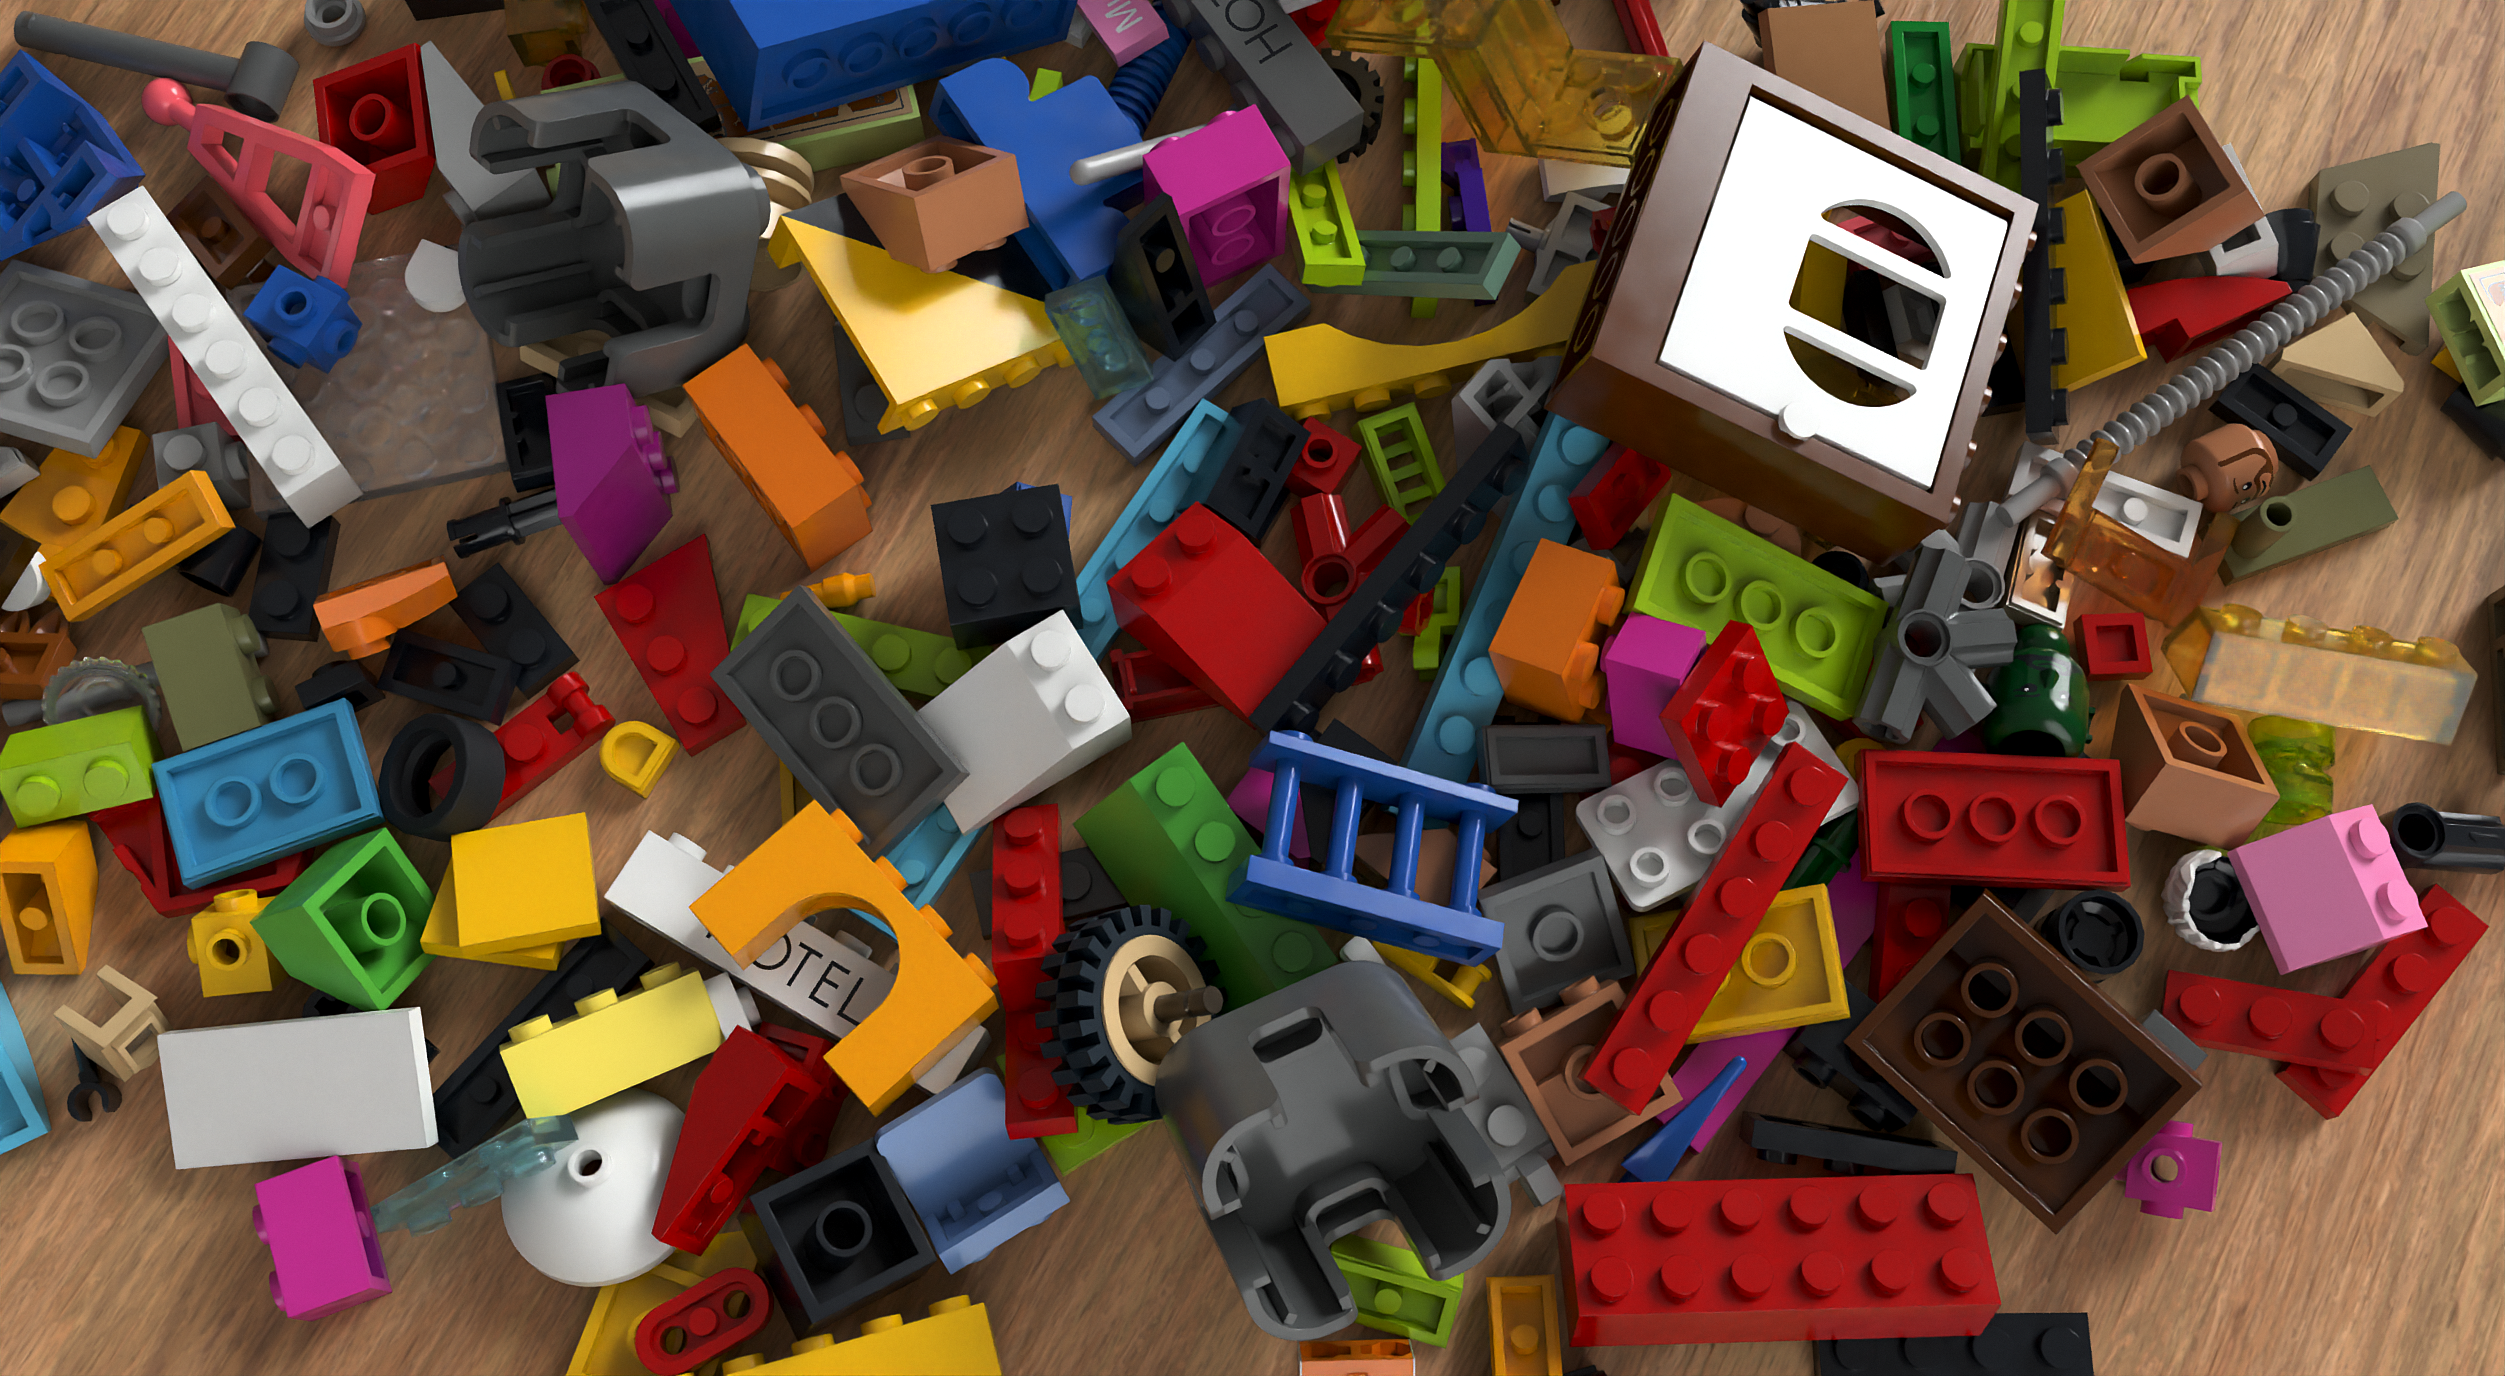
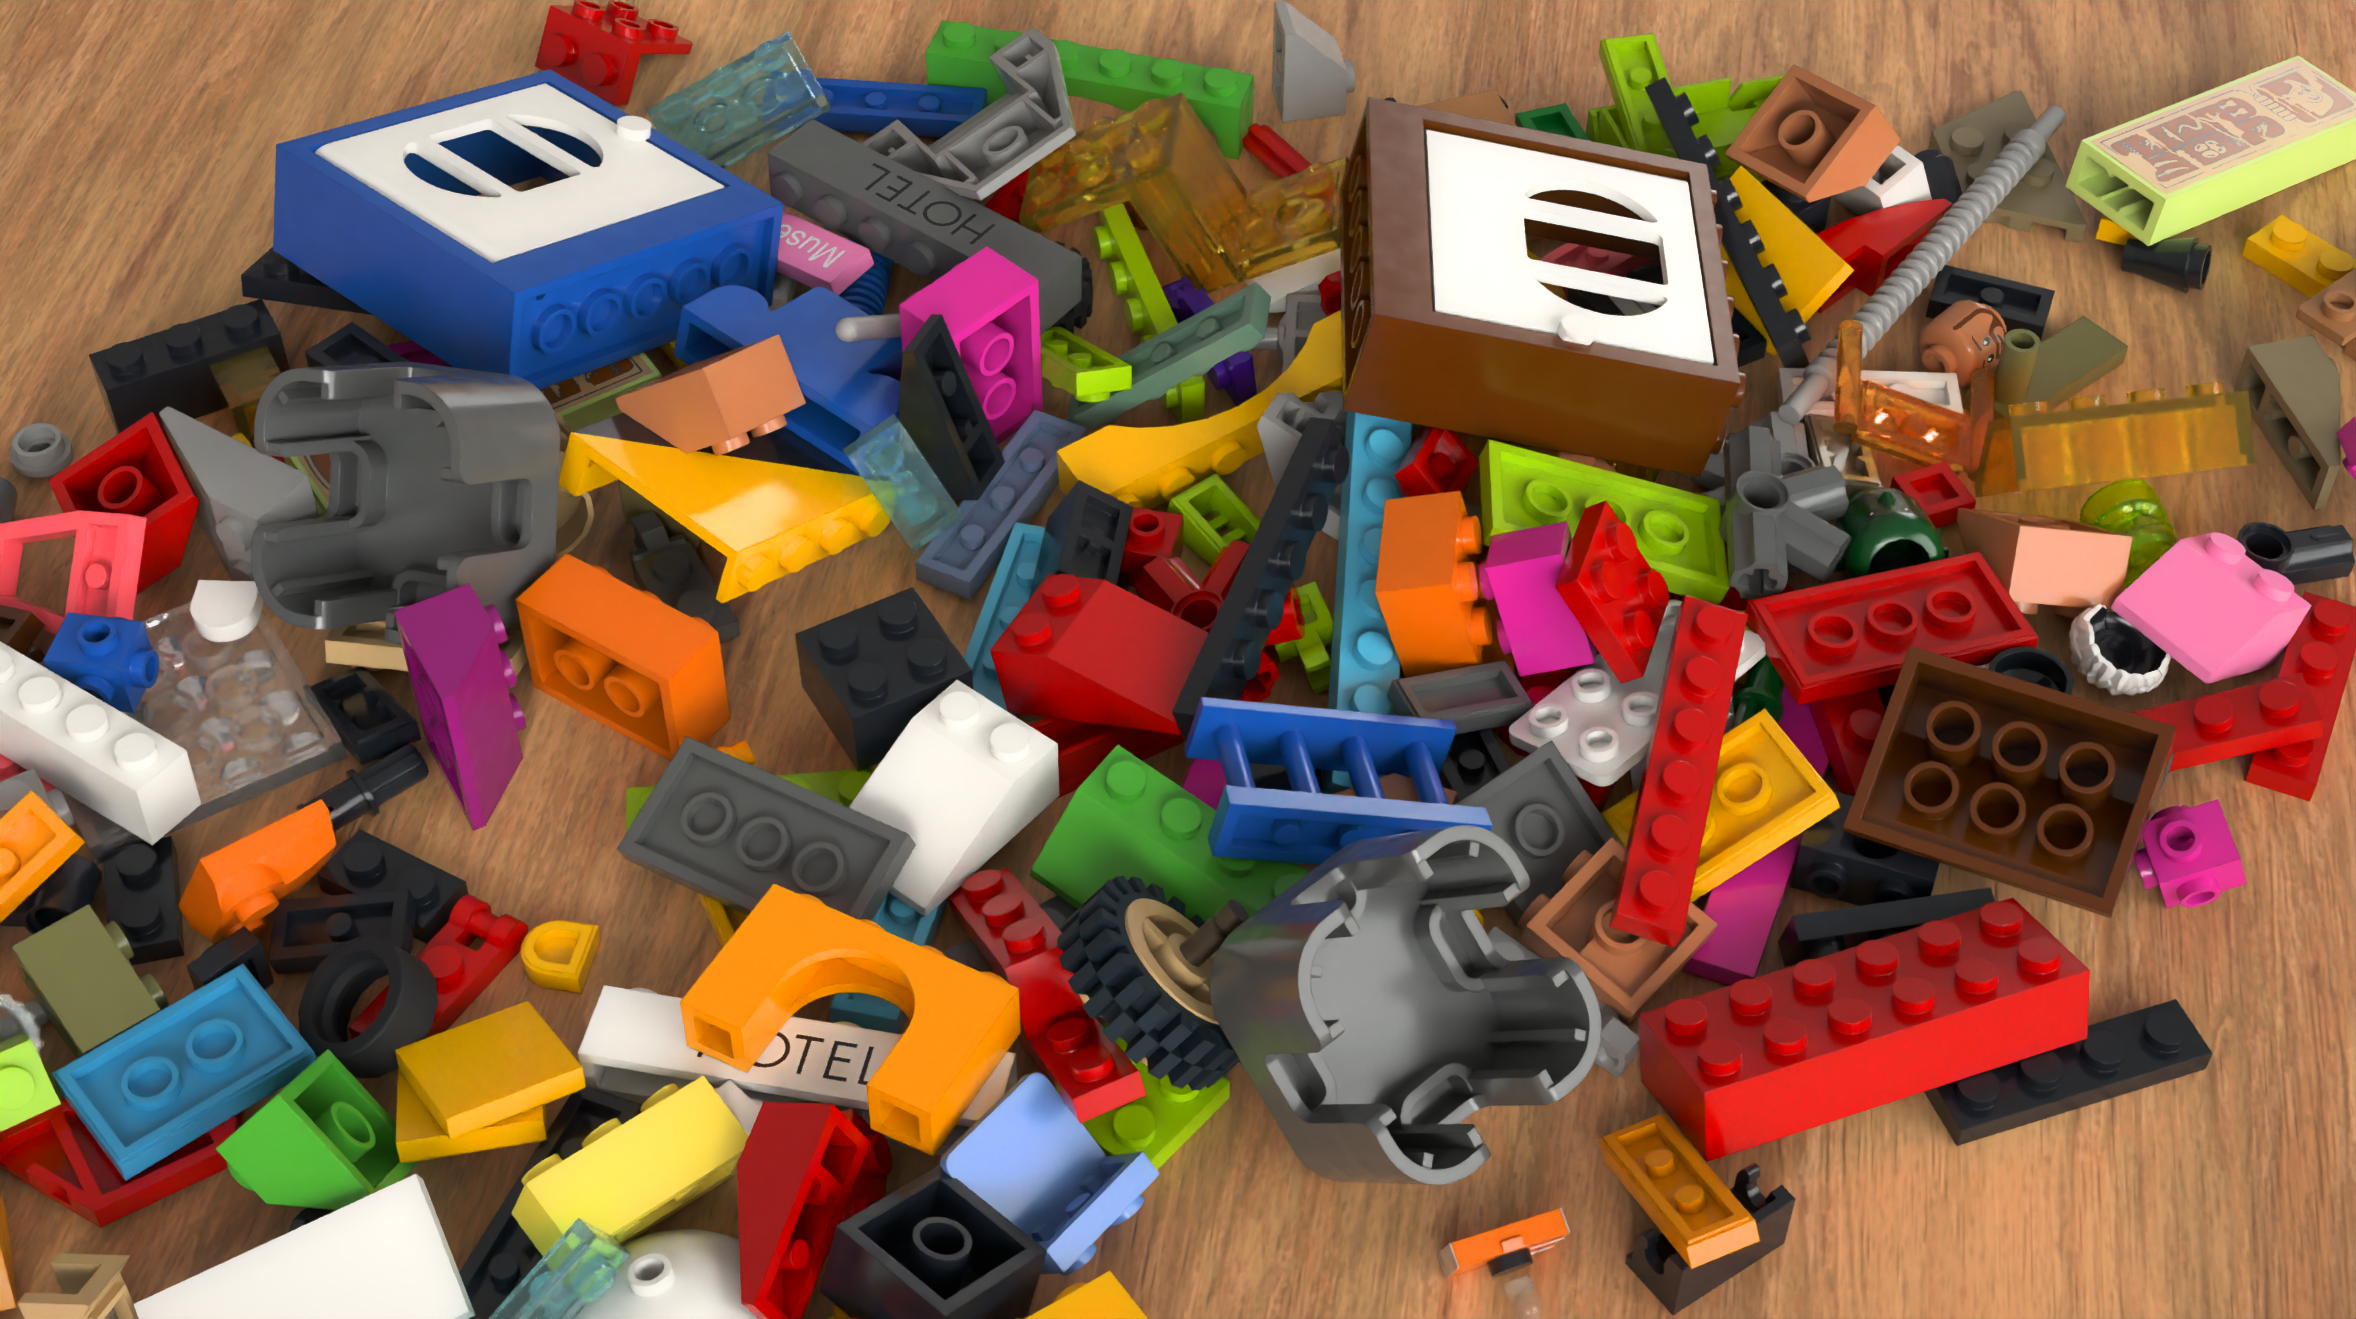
camera: 15 degrees left, 25 degrees down
(229, 949) = (203, 1232): yellow brick -> none
(676, 637) = (566, 850): red wing -> none
(1396, 1291) = (1517, 1186): lime slope -> none
(1661, 1151) = (1726, 956): blue piece -> none
(2340, 368) = (2023, 251): tan slope -> none

